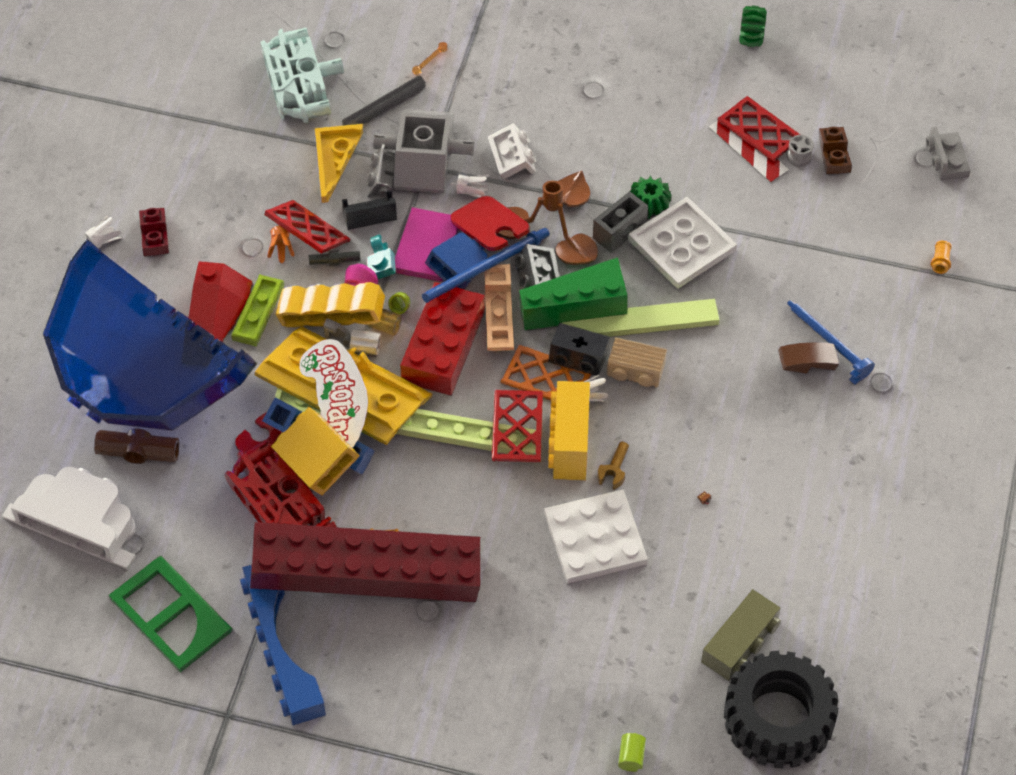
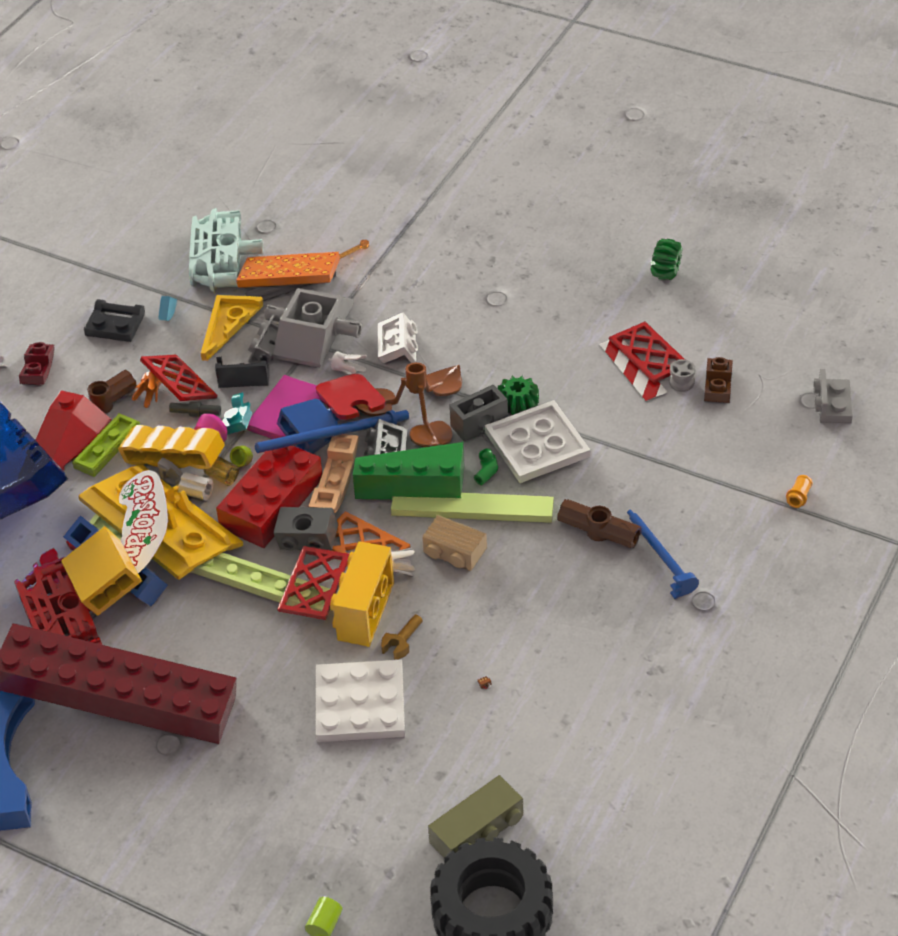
camera: 15 degrees right, 10 degrees down
(216, 177) = (112, 326): none -> black plate
(244, 250) = (105, 393): none -> reddish brown piece
(267, 150) = (167, 308): none -> medium azure tile
(379, 89) = (288, 269): none -> orange tile
(479, 364) = (305, 527): none -> dark grey brick
(579, 349) = (399, 521): black brick -> none
(643, 276) = (489, 466): none -> green arm
(756, 316) = (599, 523): none -> reddish brown piece
(803, 356) = (623, 562): reddish brown slope -> none

